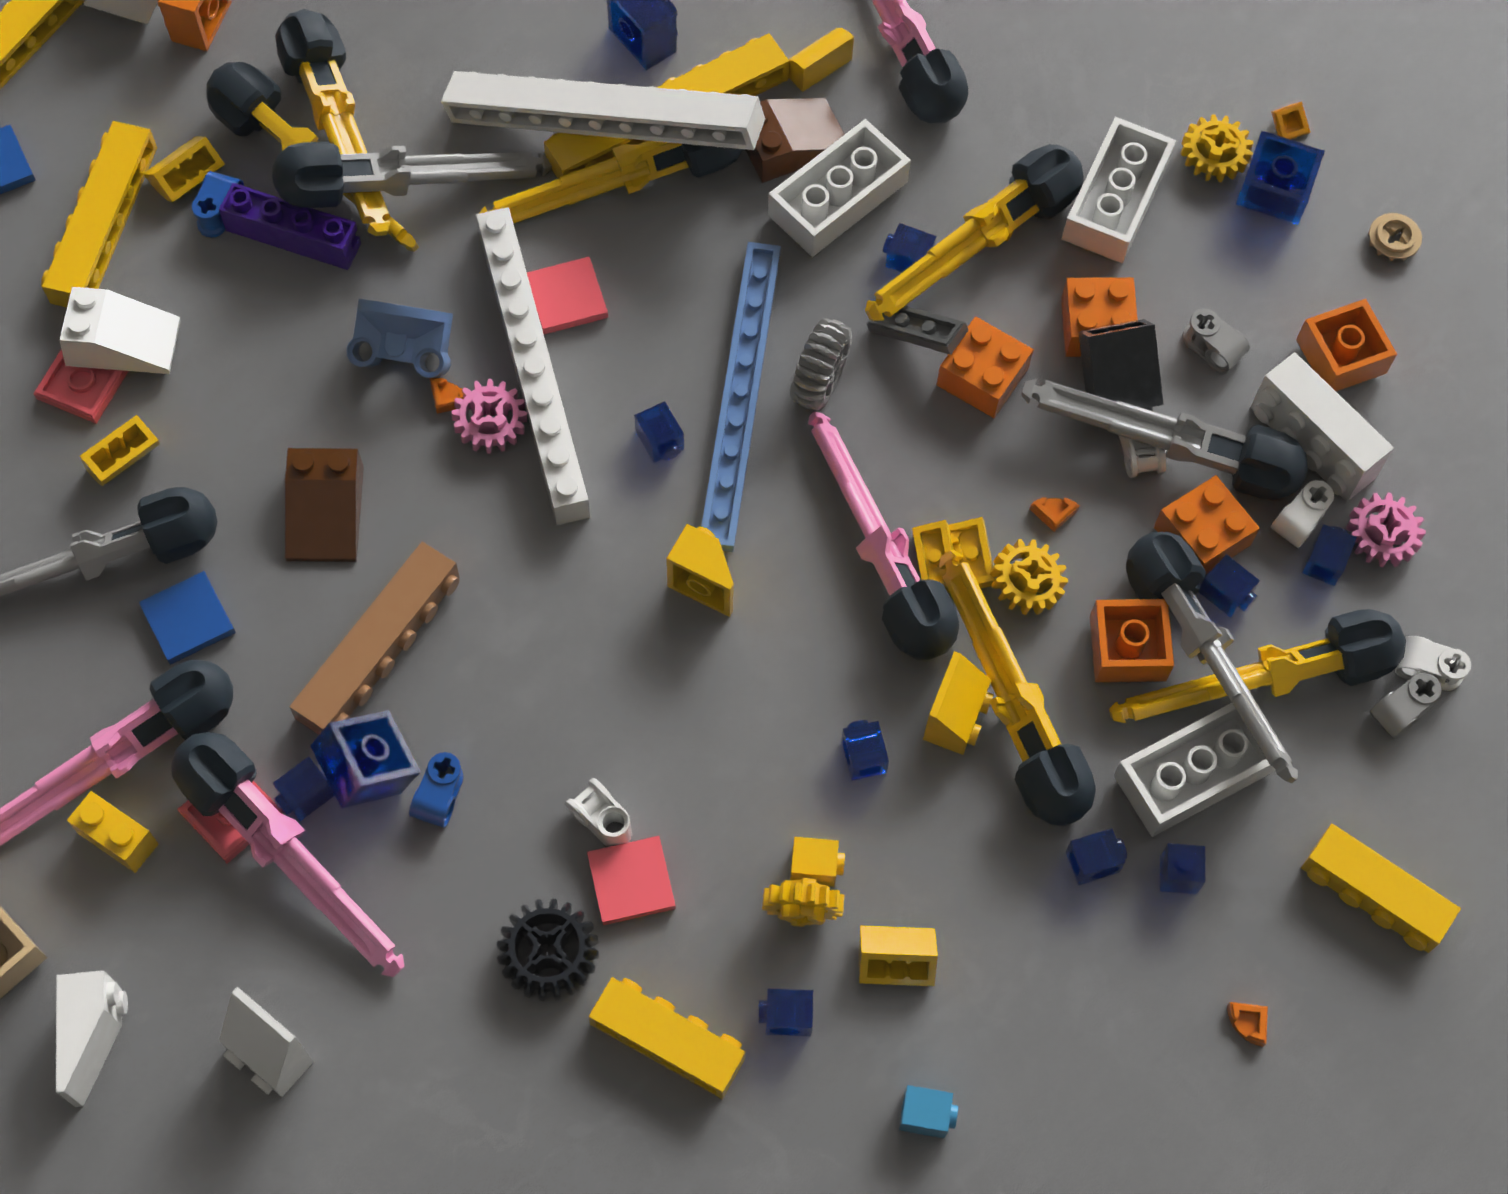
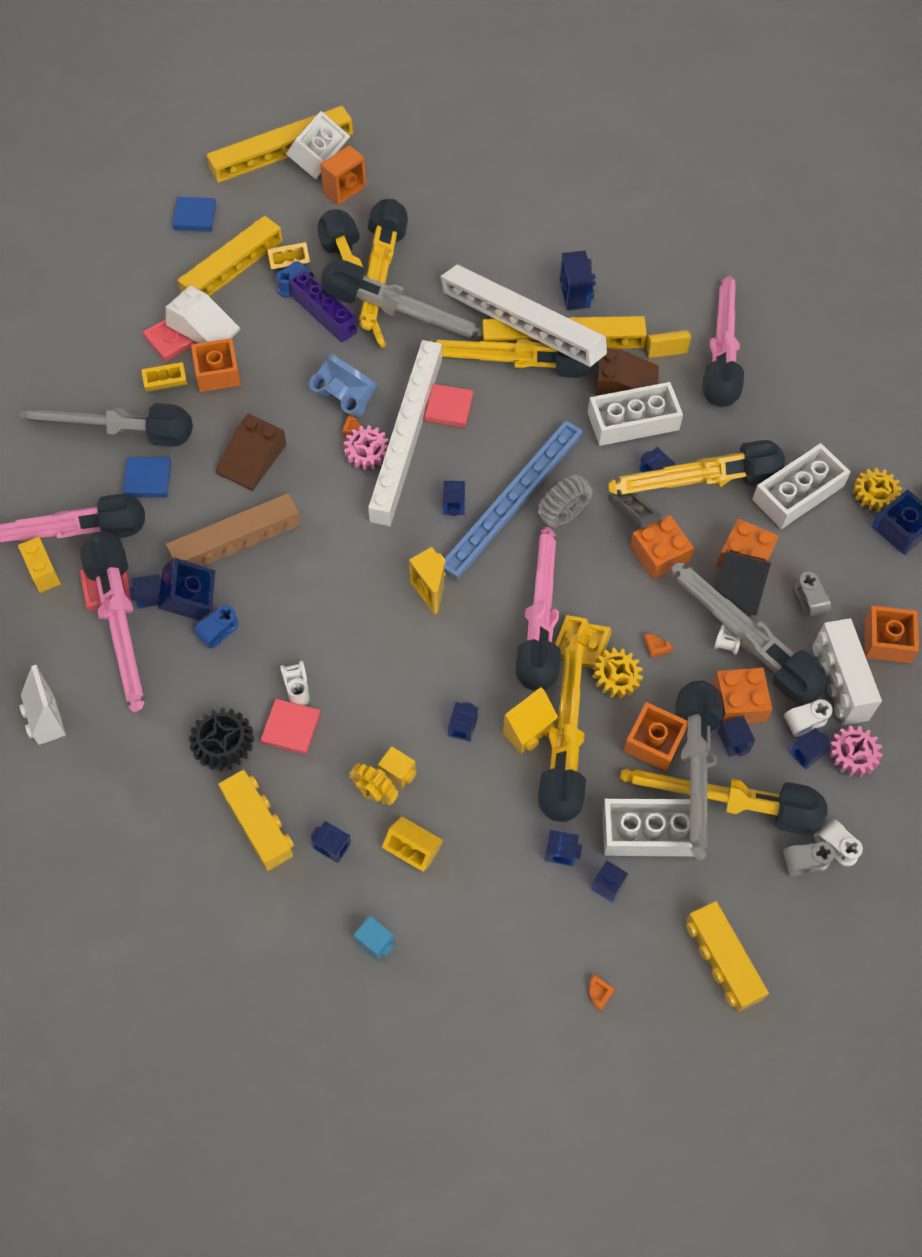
camera: 30 degrees right, 5 degrees down
(187, 394) = (215, 365): none -> orange brick

